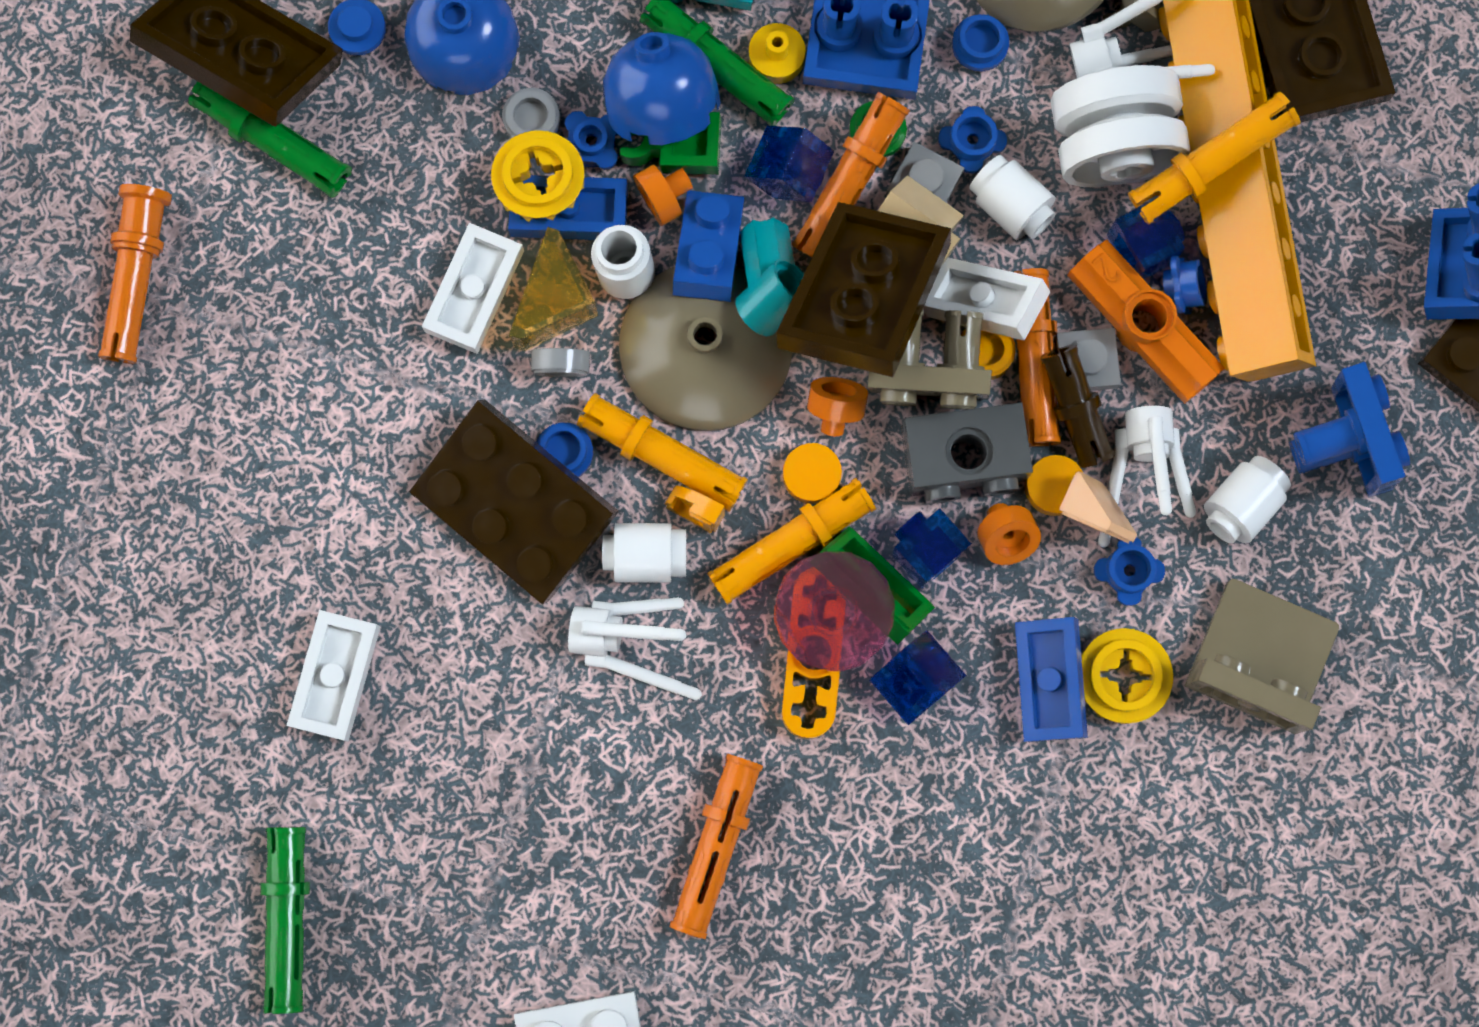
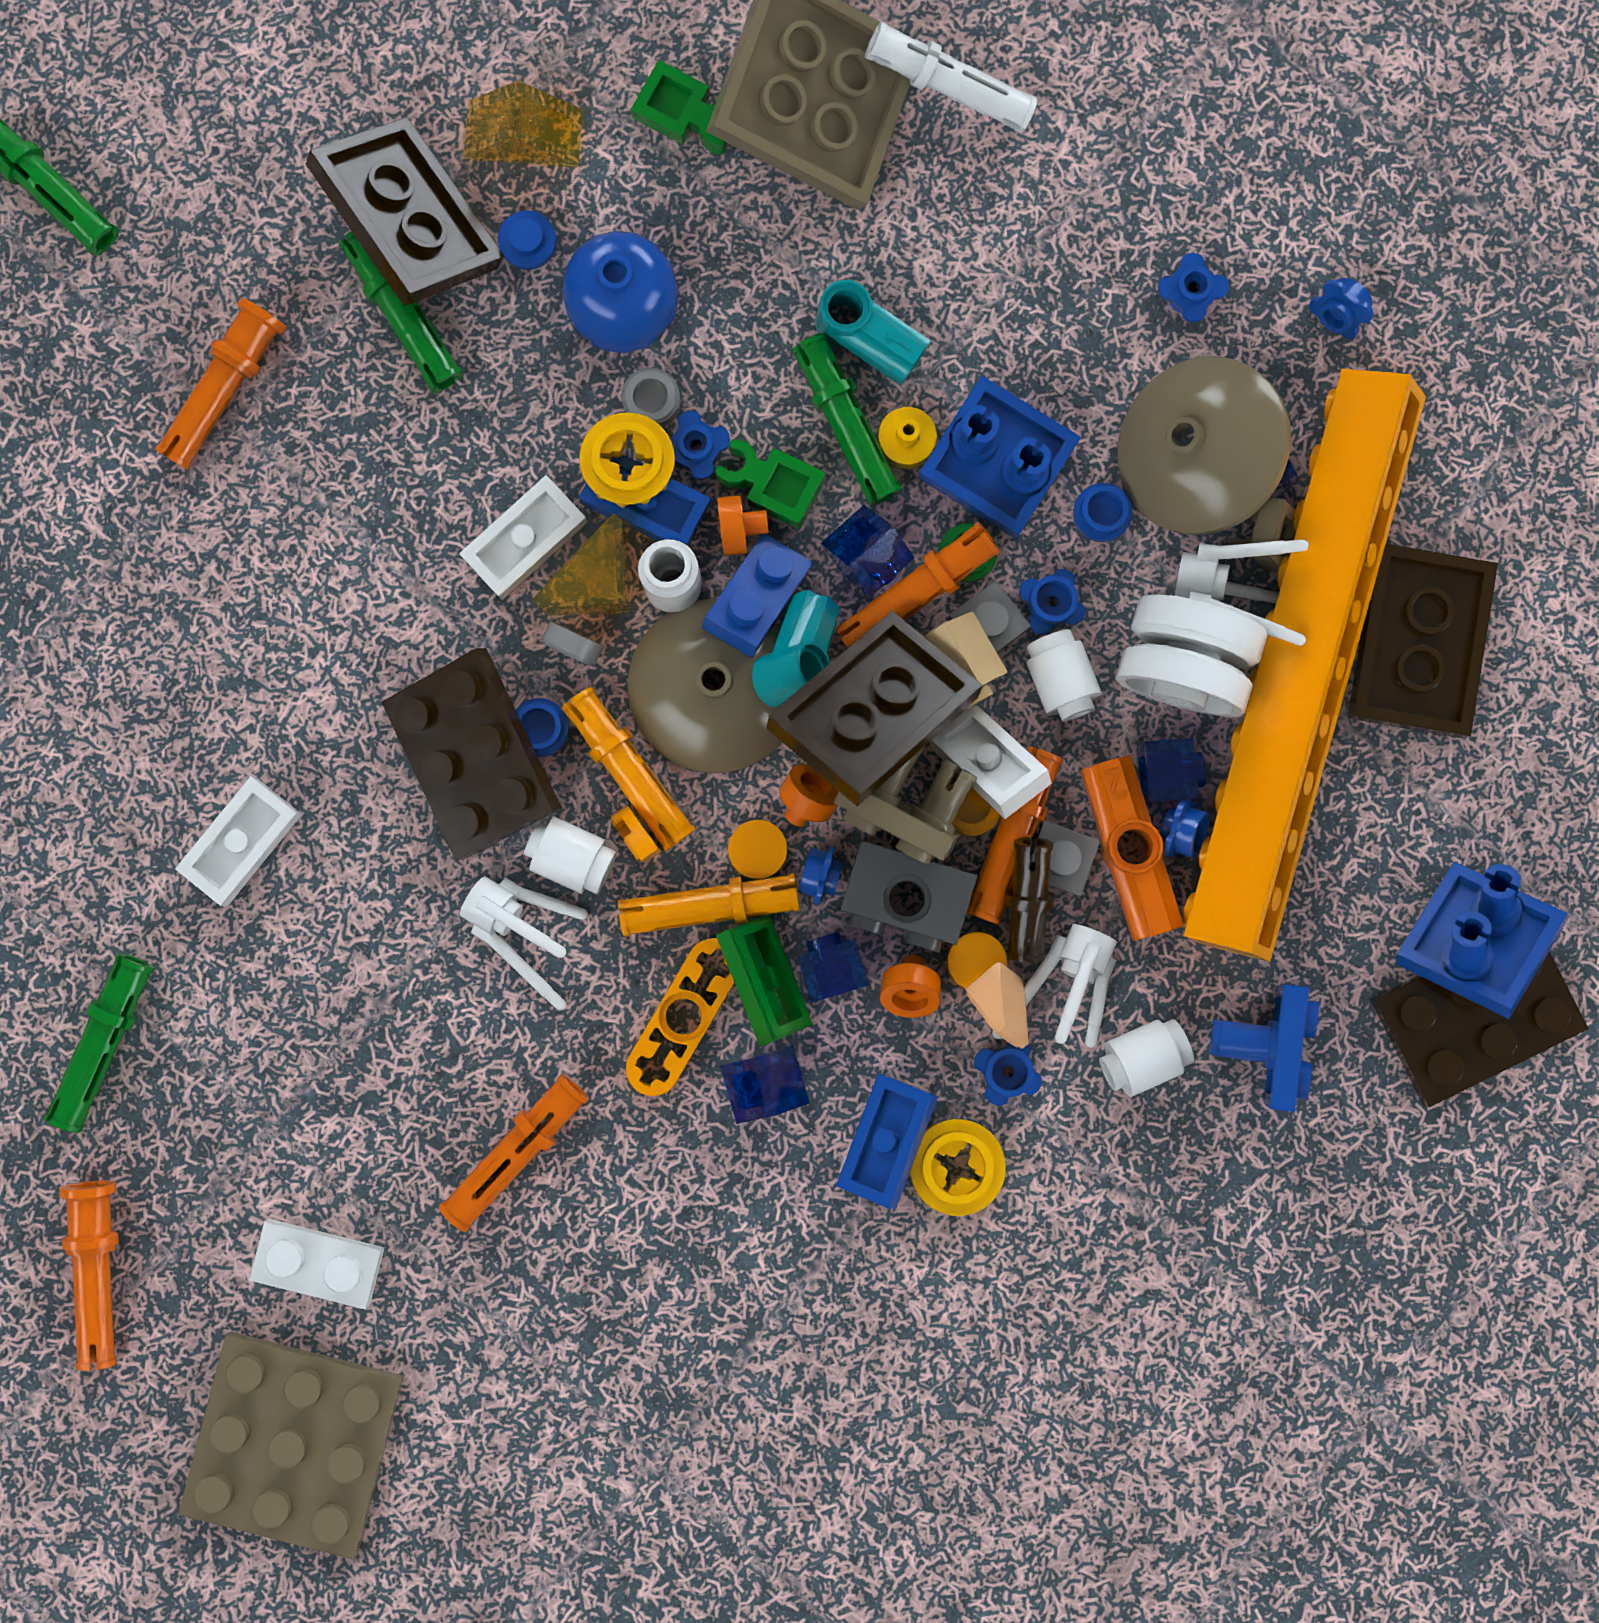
camera: 25 degrees right, 5 degrees up
(660, 89) = (777, 428): blue cylinder -> none
(834, 610) = (714, 990): clear pink tile -> none
(879, 468) = (820, 874): none -> blue plate
(1192, 172) = (1262, 727): light orange pin -> none
(1263, 657) = (1093, 1207): dark tan bracket -> none

